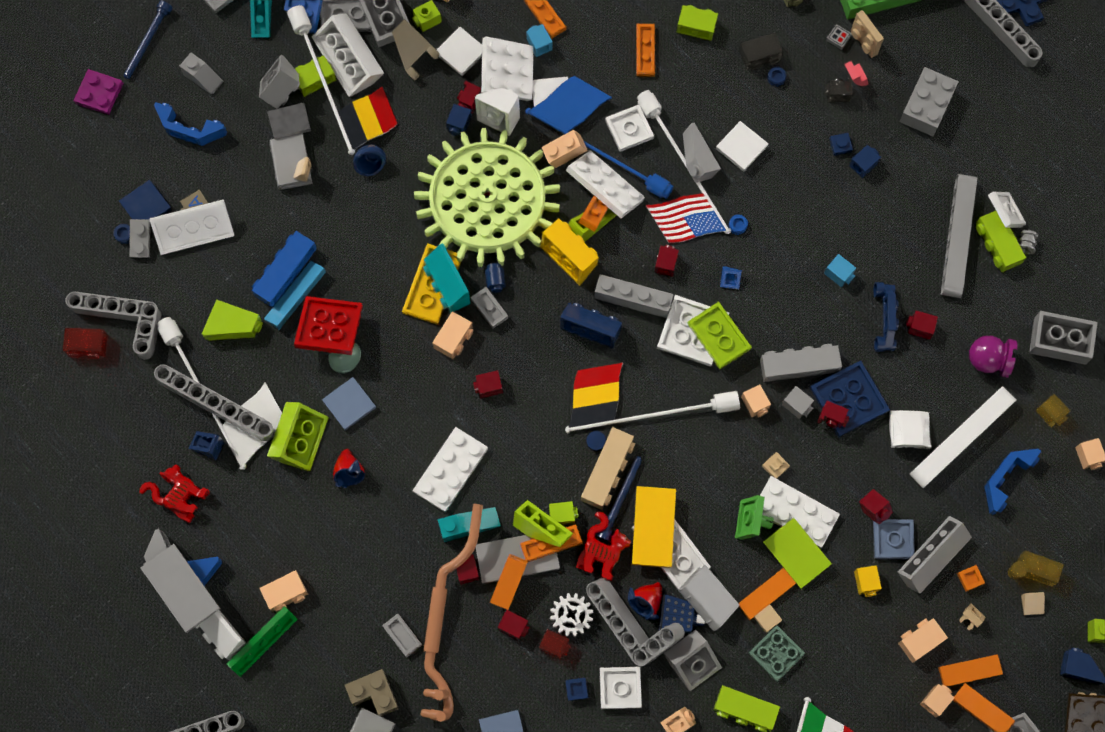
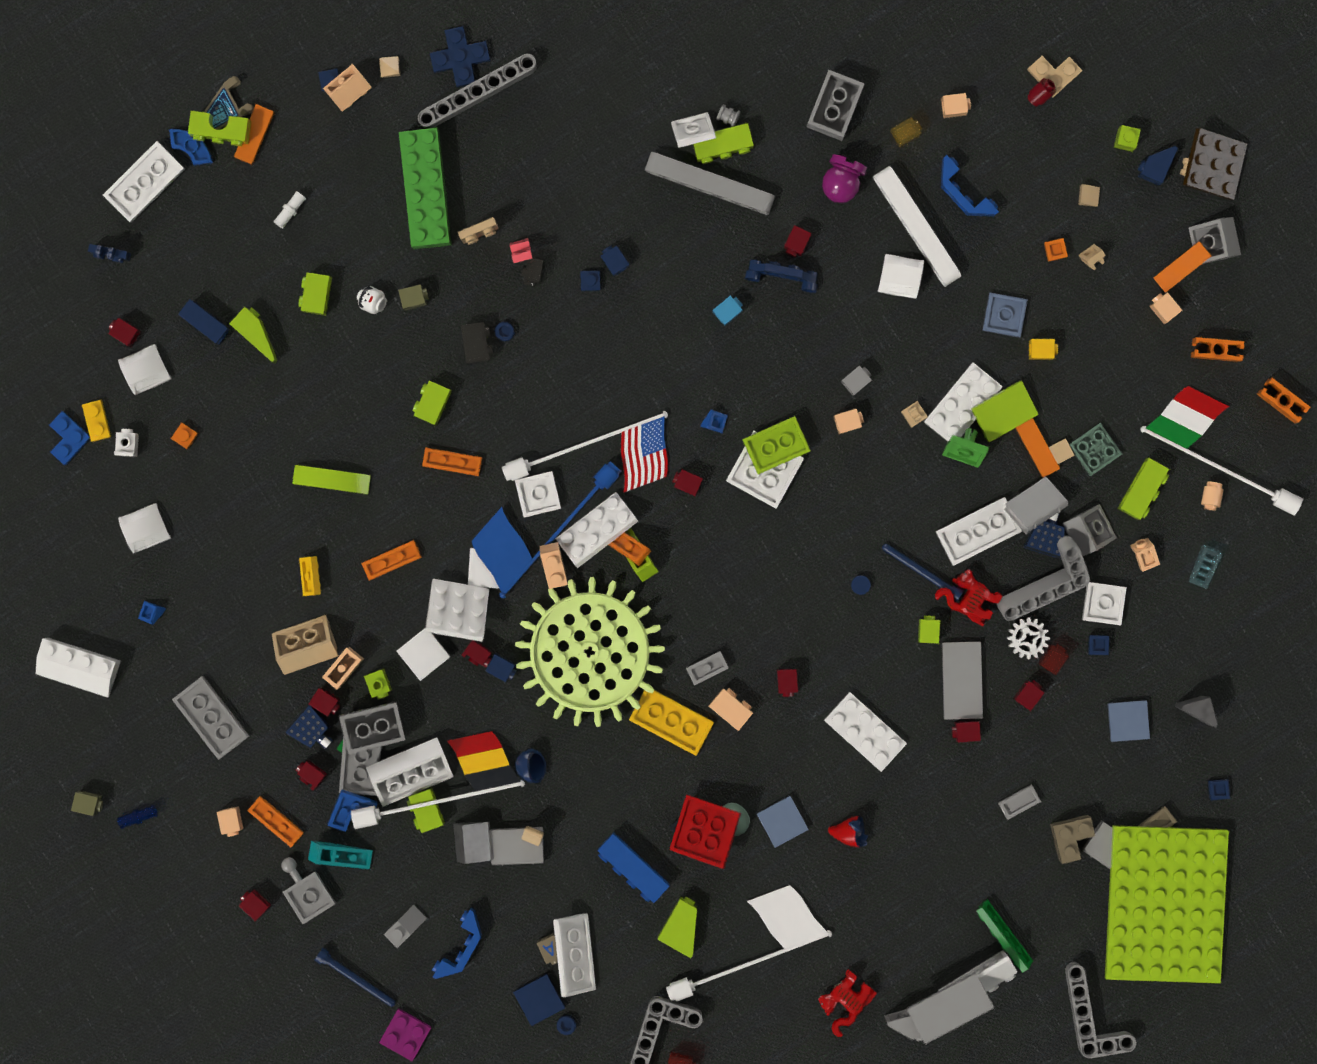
camera: 80 degrees left, 15 degrees up
(139, 238) = (576, 1008): light grey plate -> none
(205, 568) = (925, 984): blue slope -> none
(207, 444) = (801, 967): dark blue slope -> none
(209, 395) = (763, 963): light grey beam -> none
(279, 83) = (431, 848): light grey slope -> none
(284, 591) = (960, 909): light nougat brick -> none
(295, 295) = (660, 860): dark azure slope -> none
(297, 436) = (808, 876): lime slope -> none
(411, 46) = (415, 705): dark tan flag -> none
(435, 623) = (1016, 769): nougat piece -> none
(446, 279) = (676, 707): teal slope -> none
(459, 524) = (923, 722): teal slope -> none
(495, 277) = (677, 657): dark blue brick -> none
(498, 109) = (503, 624): white slope -> none
(508, 581) = (988, 693): orange piece -> none
(536, 549) = (956, 646): orange tile -> none
(539, 39) = (424, 570): dark azure brick -> none
(539, 525) = (941, 653): lime slope -> none
(569, 251) = (664, 578): yellow slope -> none
(590, 324) = (742, 569): dark blue slope -> none
(598, 398) = (816, 575): flag -> none
(607, 468) = (891, 579): tan brick -> none
(633, 296) = (720, 522): light grey brick -> none
(646, 600) = (1026, 563): hat -> none
(654, 527) = (958, 544): yellow tile -> none
(698, 156) = (585, 430): light grey slope -> none
(738, 224) = (659, 402): blue tile -> none
(741, 146) = (577, 383): white tile -> none
(800, 363) = (816, 369): light grey brick -> none
(833, 415) = (878, 349): dark red brick -> none
(838, 37) = (471, 258): light grey tile -> none
(854, 391) = (860, 328): dark blue plate -> none
(876, 507) = (973, 326): dark red brick -> none
(922, 640) = (1106, 309): light nougat brick -> none
(928, 101) = (561, 182): light grey brick -> none
(934, 554) = (1029, 280): light grey brick -> none
(970, 670) = (1142, 269): orange tile -> none
(1036, 568) = (1057, 186): clear yellow hinge -> none

